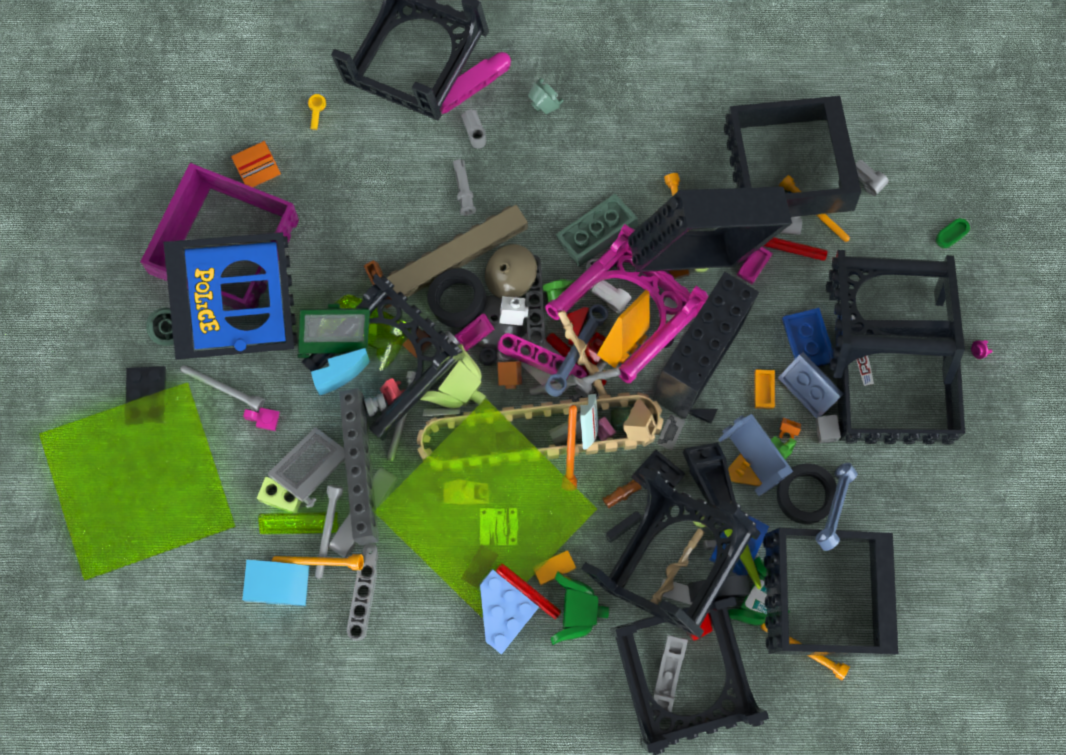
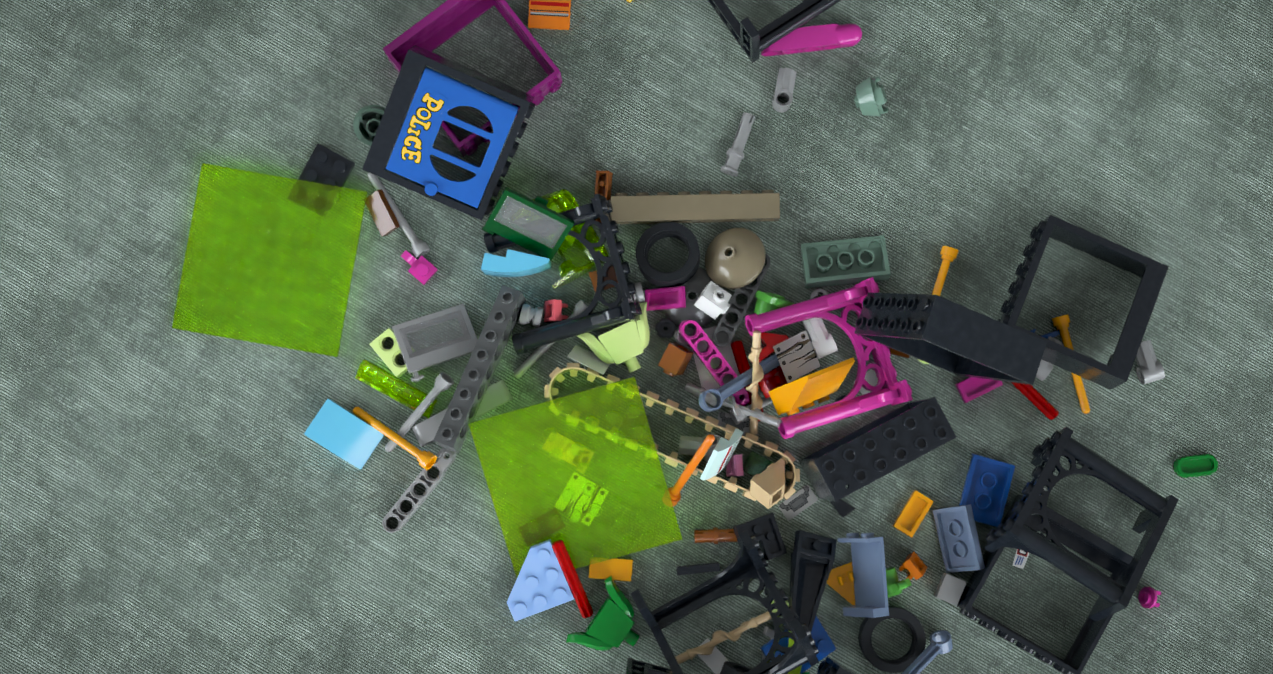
camera: 30 degrees right, 10 degrees up
(209, 392) = (381, 213): none -> tile
(600, 317) = (796, 356): none -> white sticker

